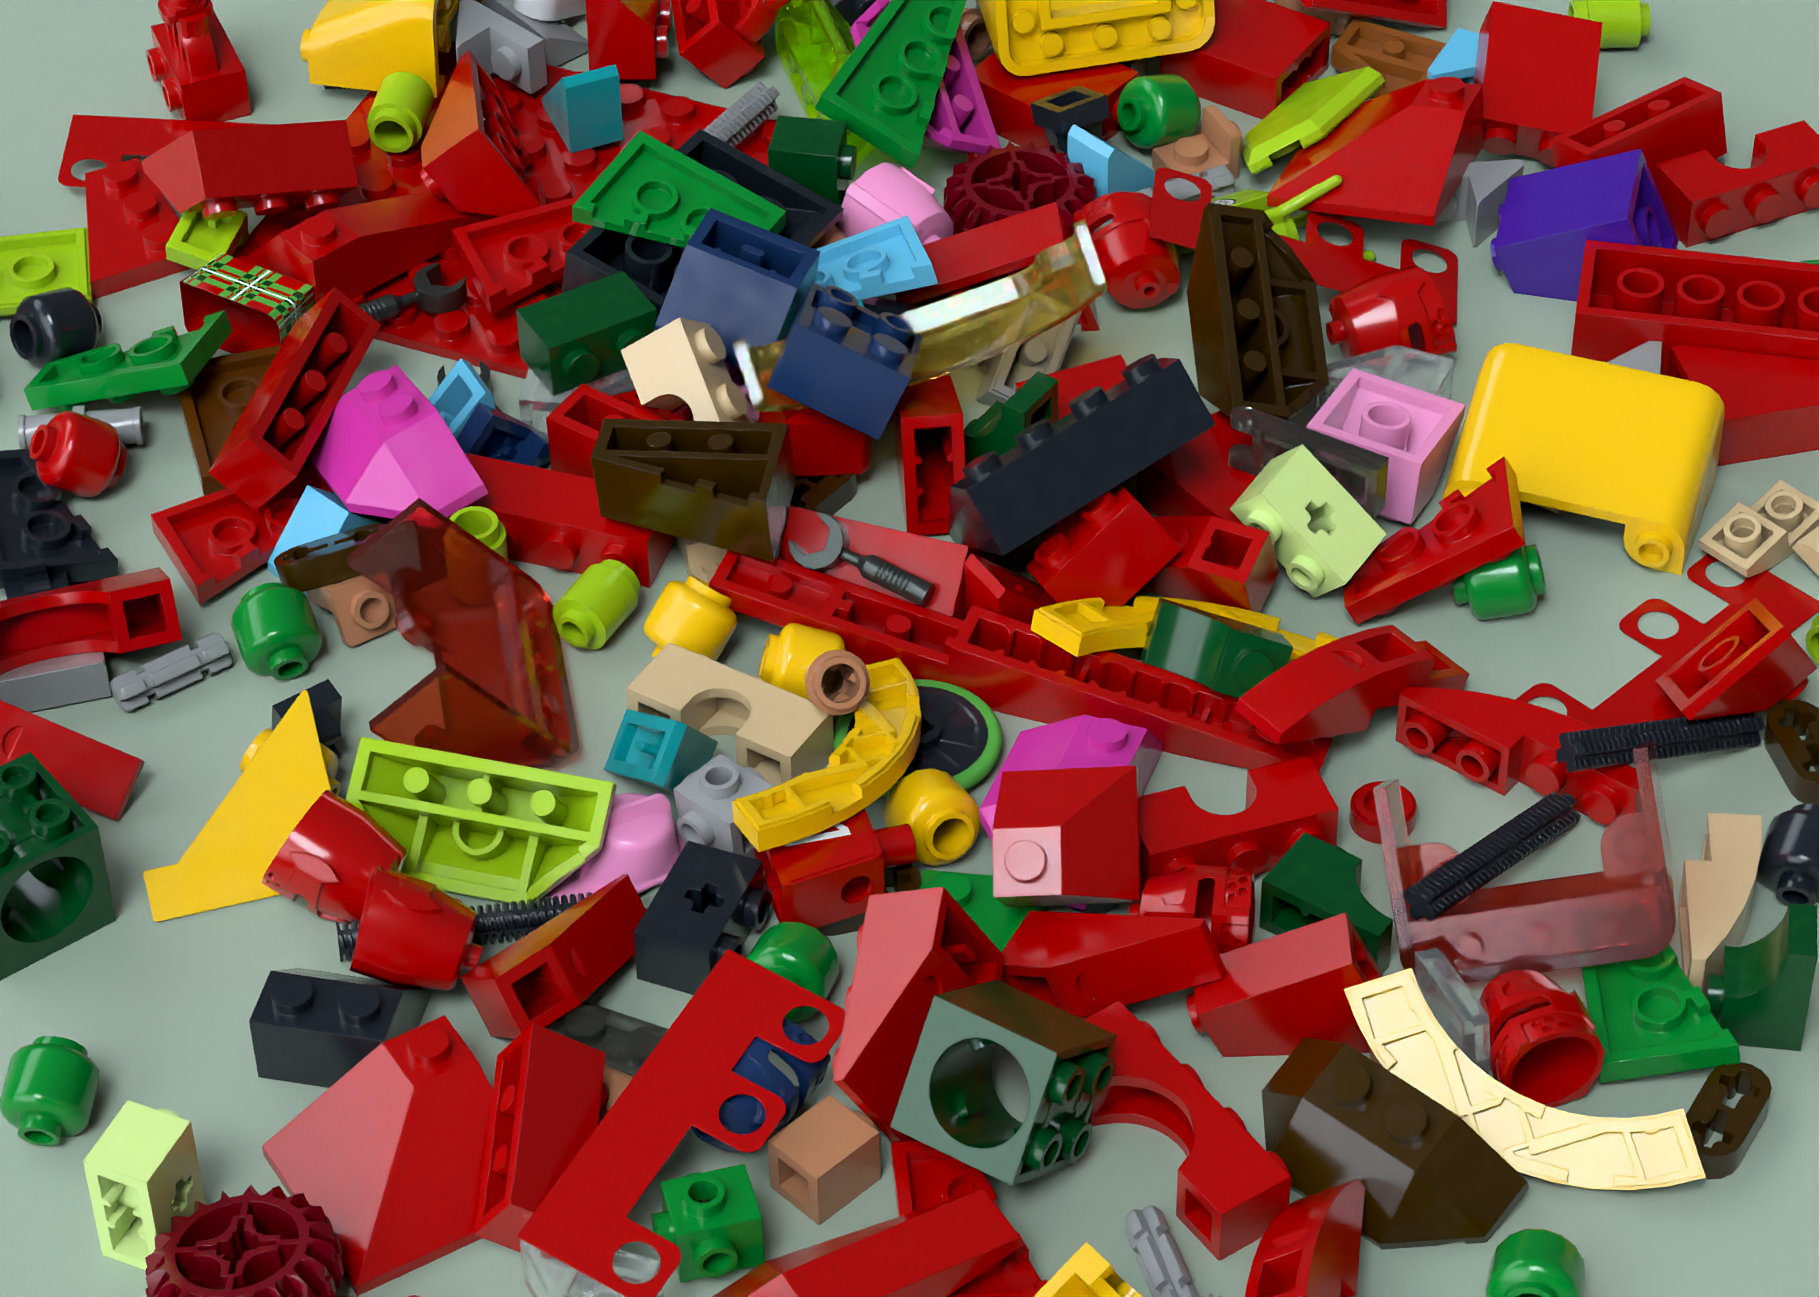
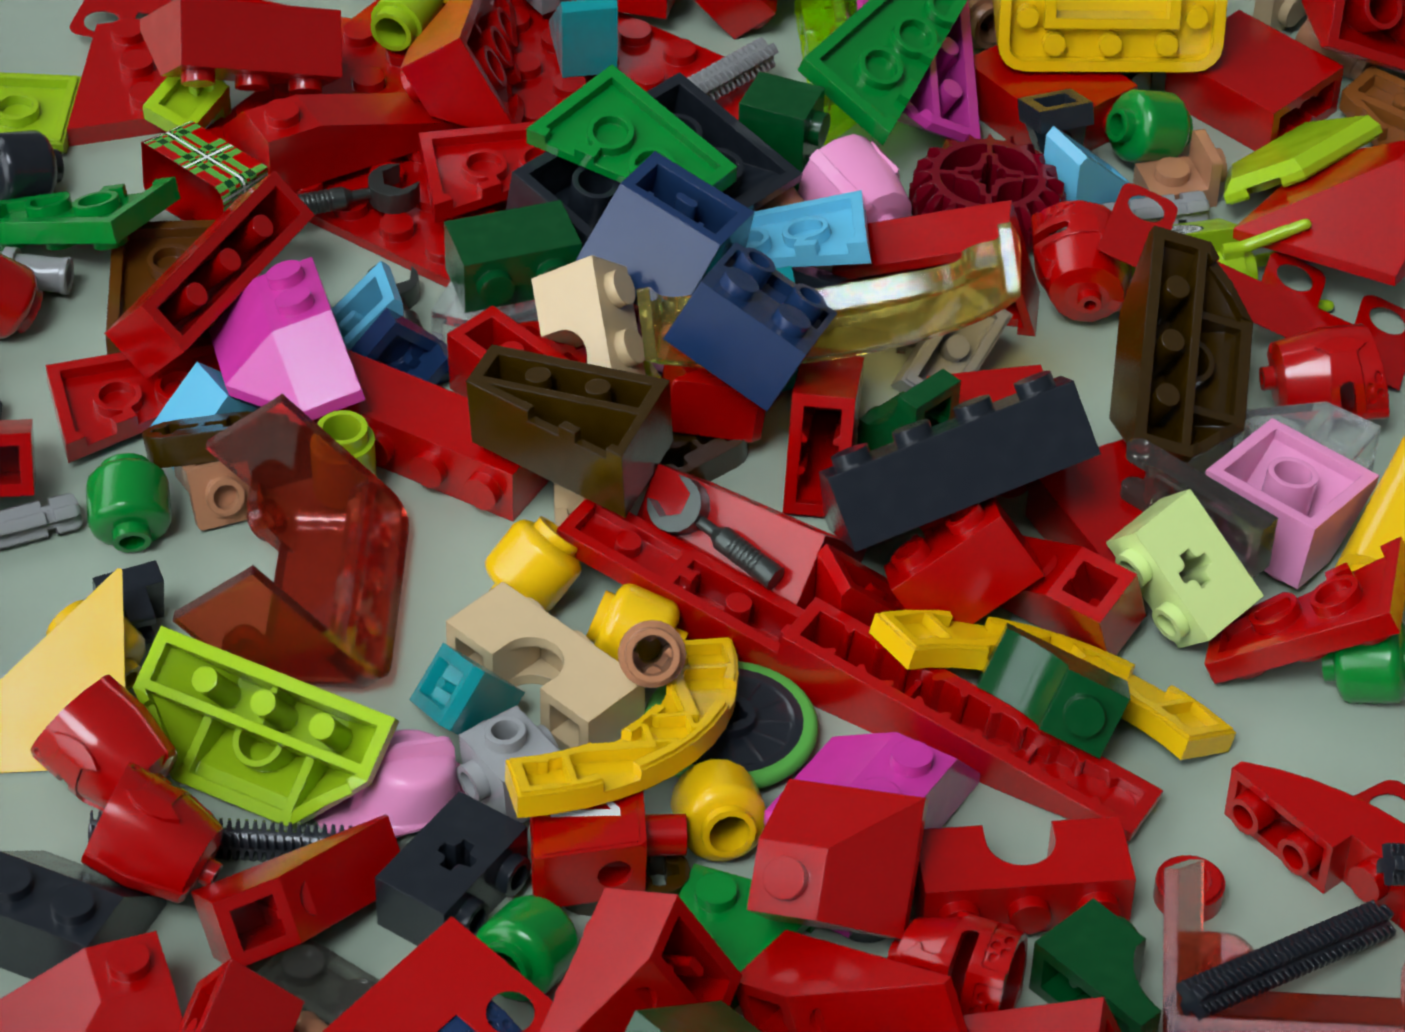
camera: 10 degrees right, 0 degrees up
(597, 604) = (449, 530): lime brick -> none
(1343, 684) = (1176, 745): red slope -> none

